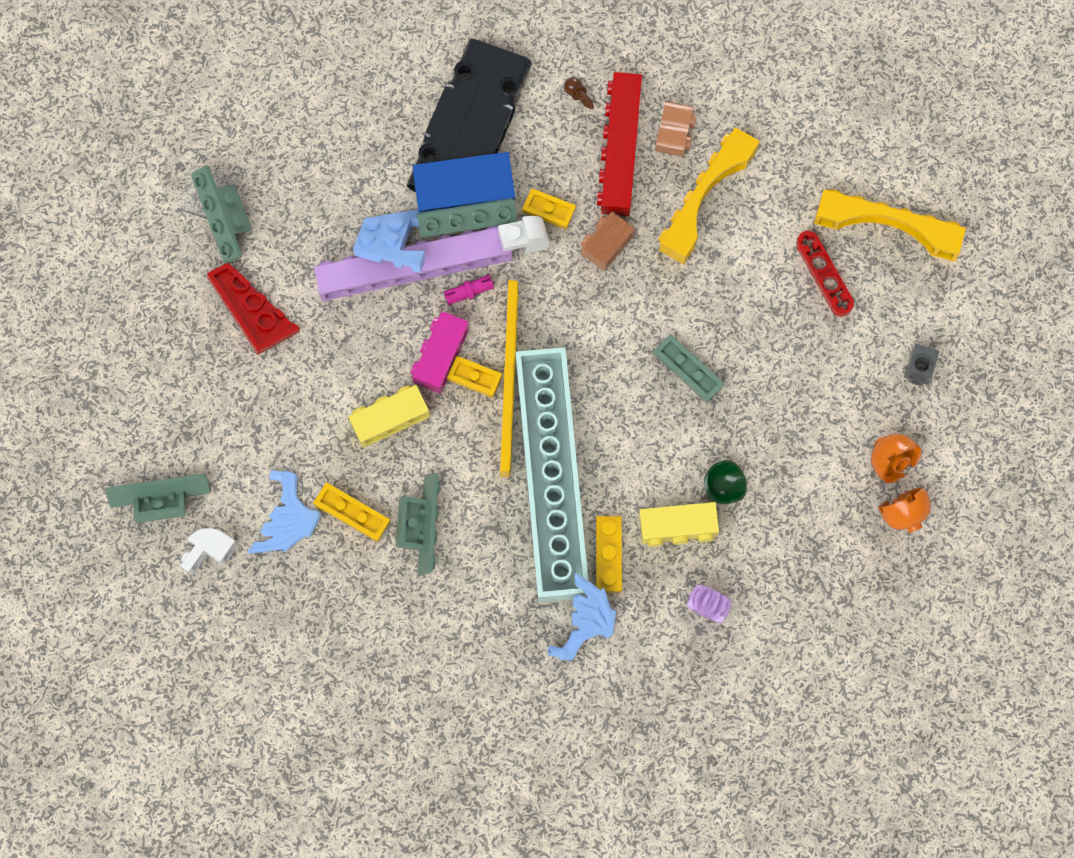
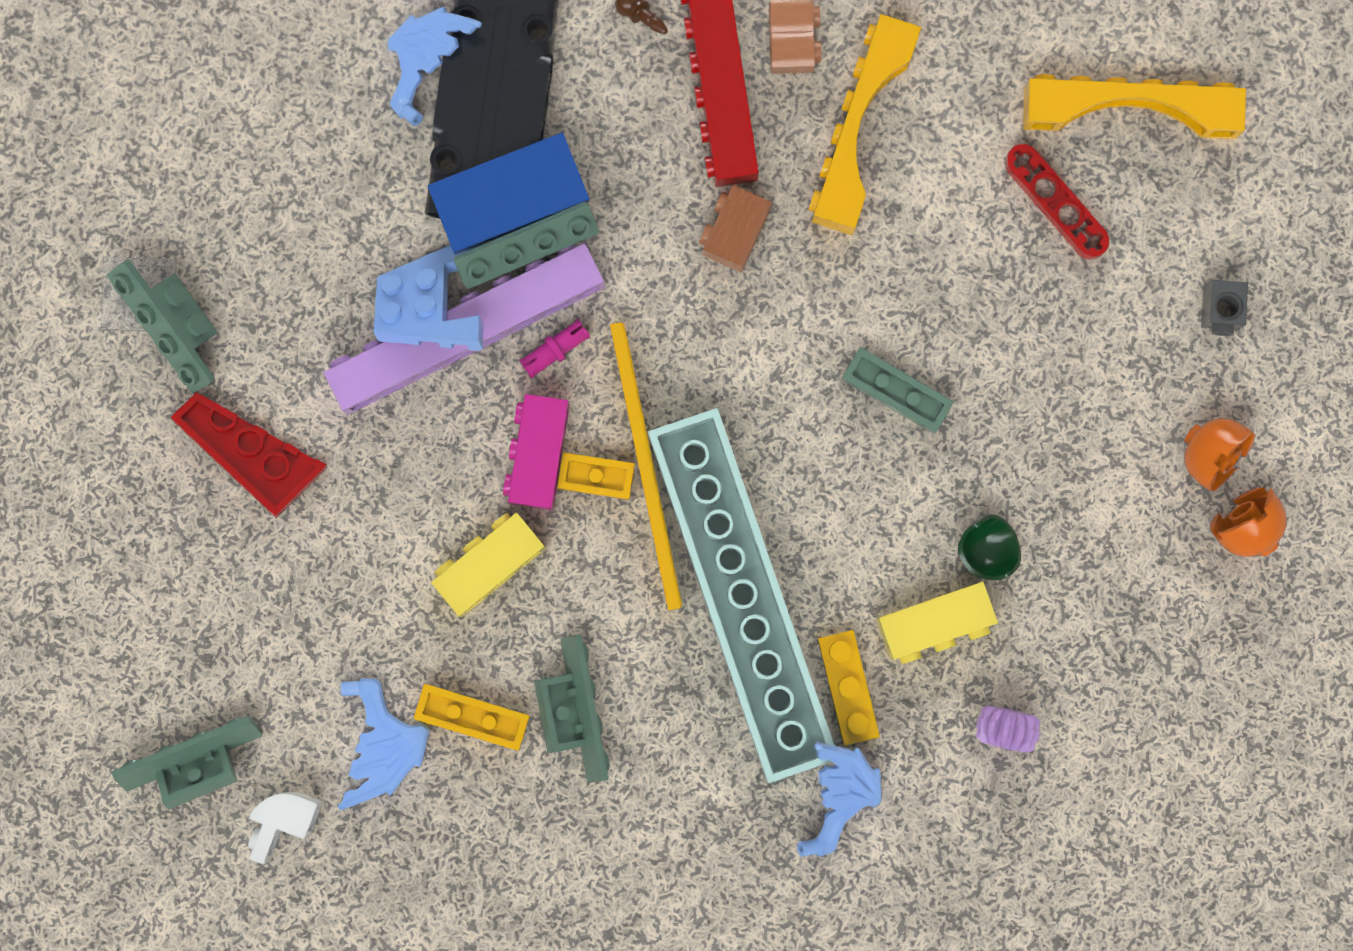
camera: 15 degrees left, 10 degrees up
(429, 82) = (419, 47): none -> light blue animal
(524, 234) = (617, 249): white brick -> none
(549, 208) = (640, 199): yellow plate -> none

